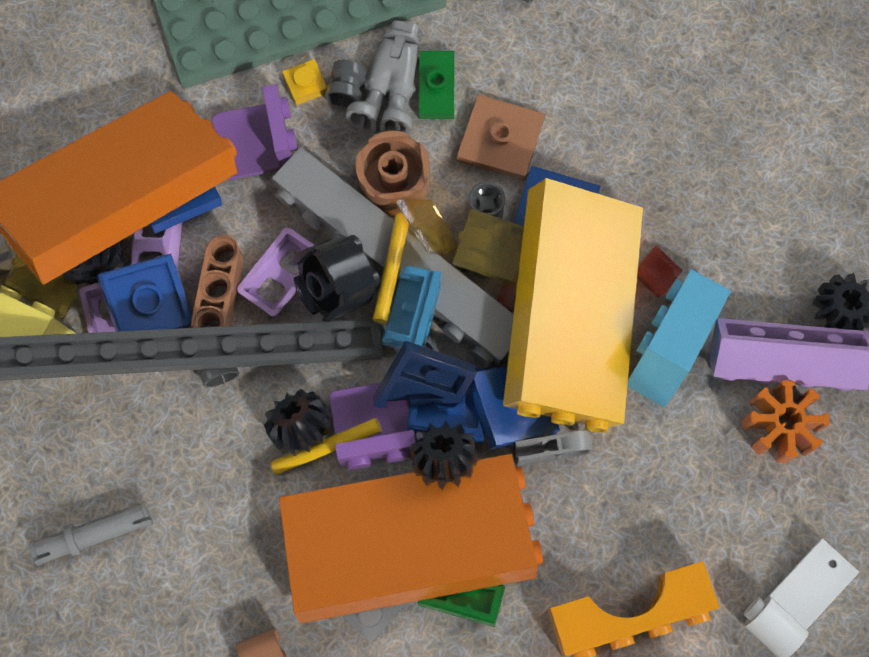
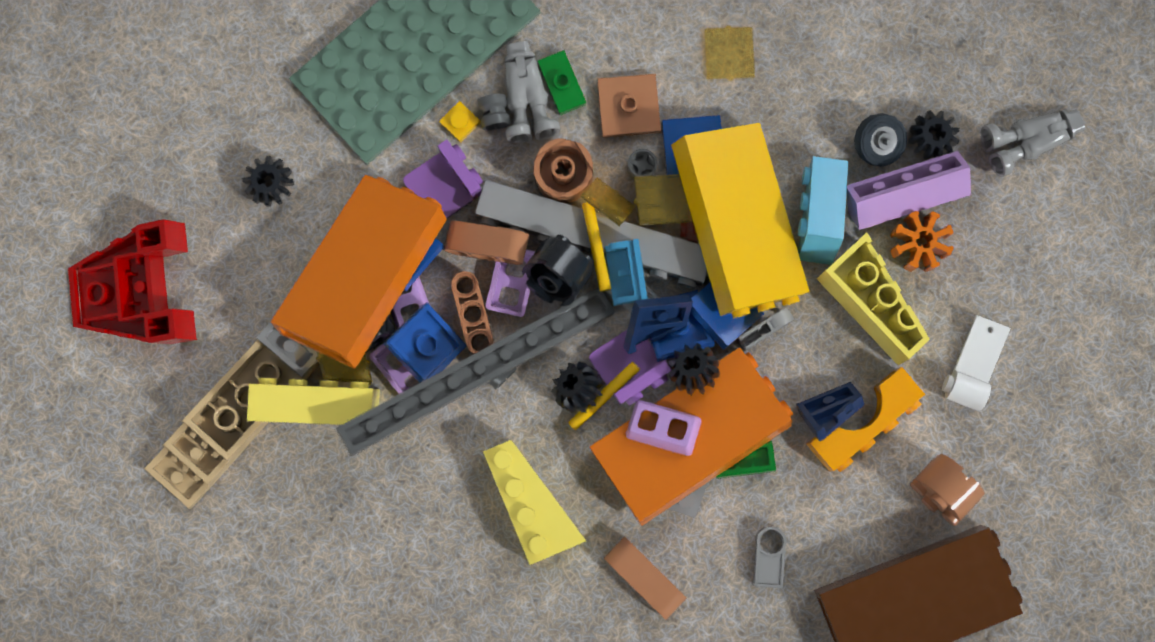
camera: 25 degrees left, 10 degrees up
(66, 60) = (276, 172): none -> black gear
(76, 538) = (464, 527): light grey pin -> none
(178, 543) = (534, 511): none -> light yellow wedge
(270, 216) = (486, 242): none -> nougat beam
(364, 517) = (659, 436): none -> lavender piece
(593, 577) = (830, 409): none -> dark blue wing
(639, 126) = (729, 53): none -> clear yellow piece
(657, 271) = (788, 165): clear red plate -> none
(699, 466) = (874, 300): none -> light yellow wedge
(779, 284) = (880, 139): none -> black wheel

